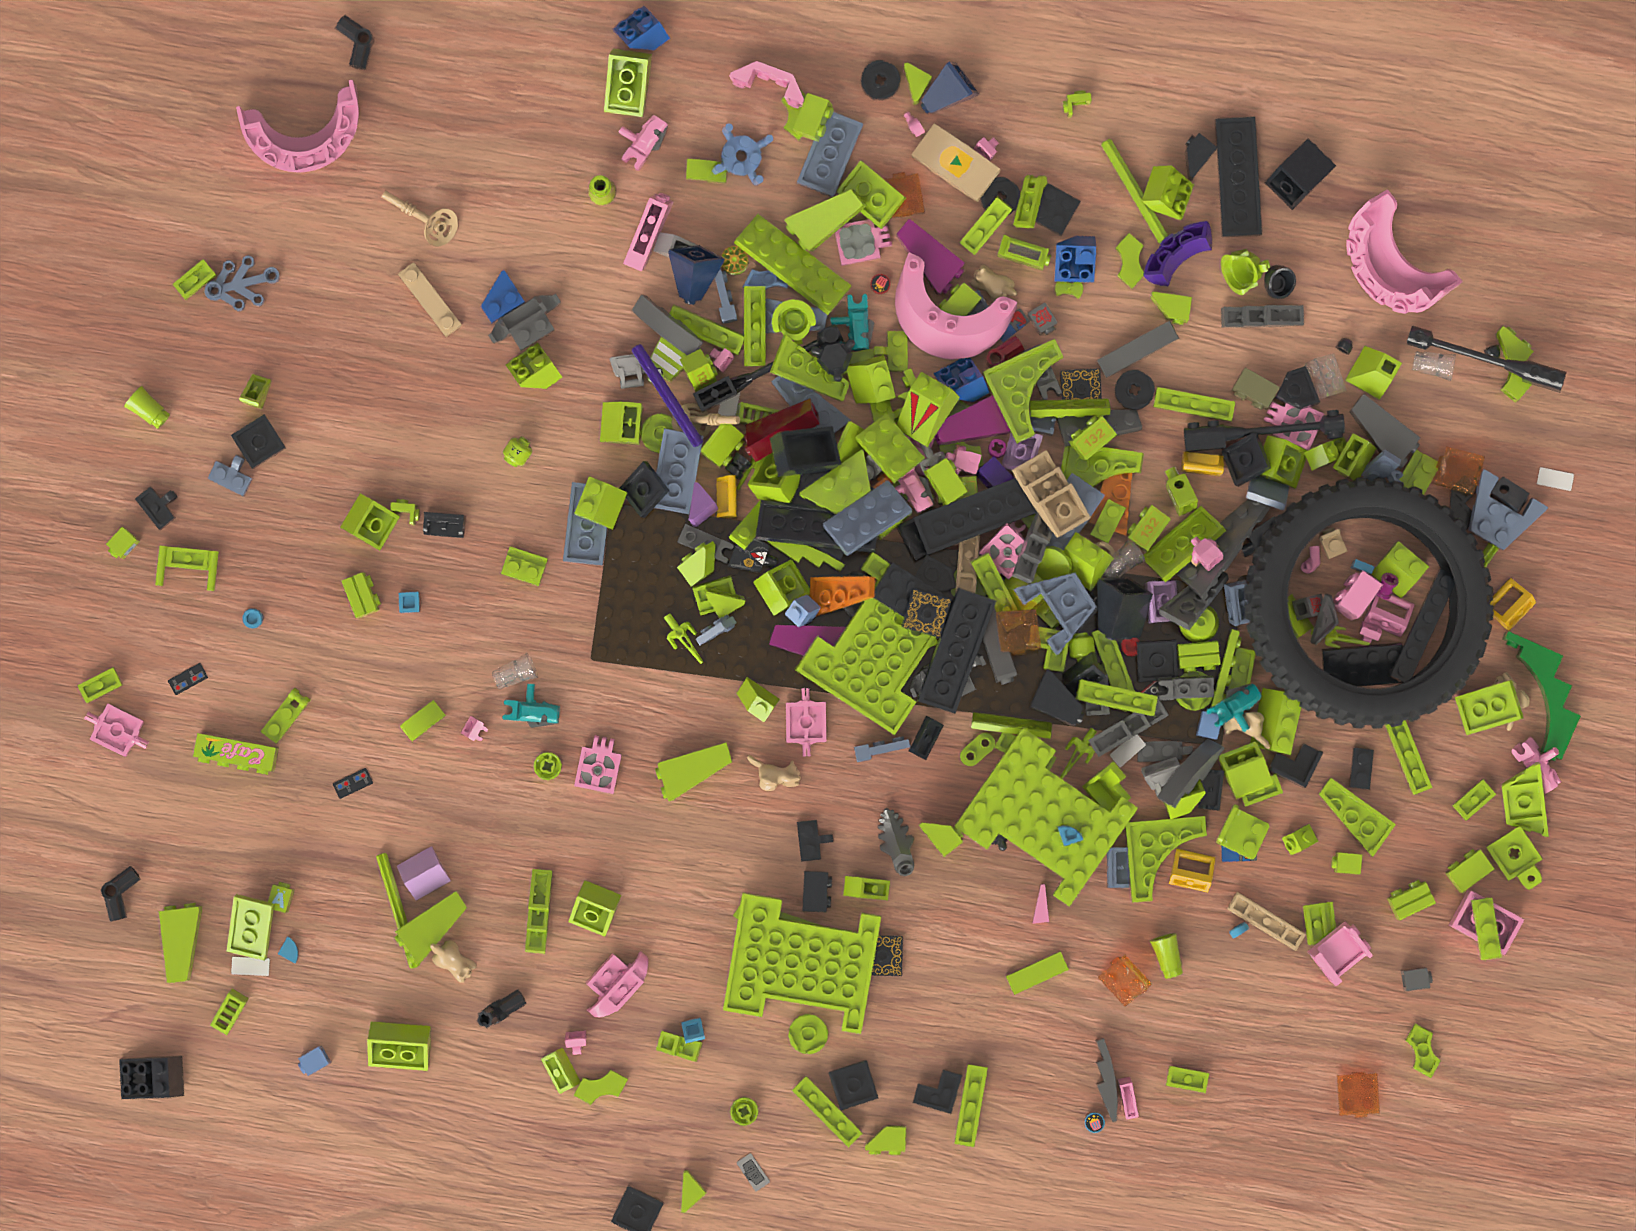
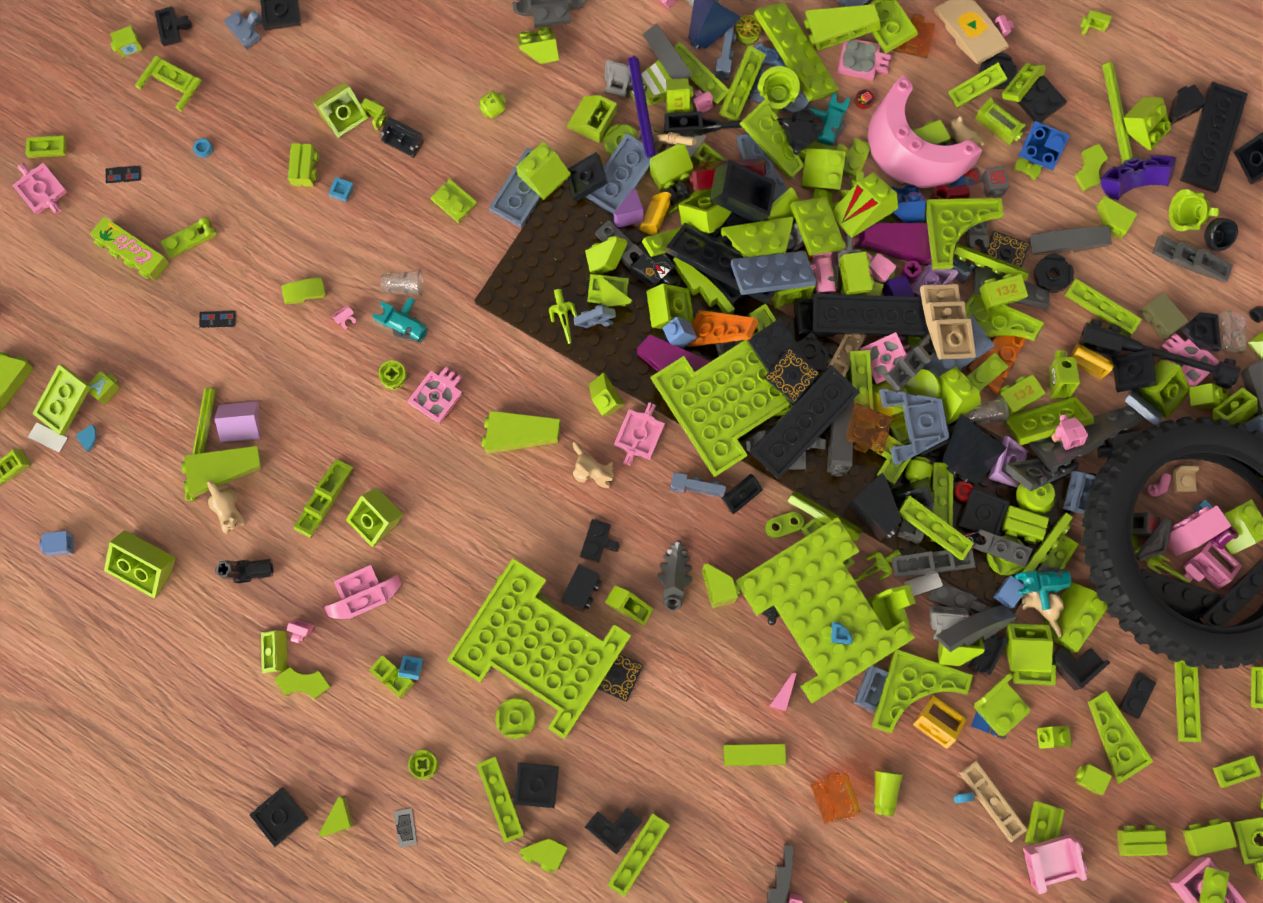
camera: 20 degrees right, 10 degrees down
(939, 262) = (924, 101): magenta slope -> none

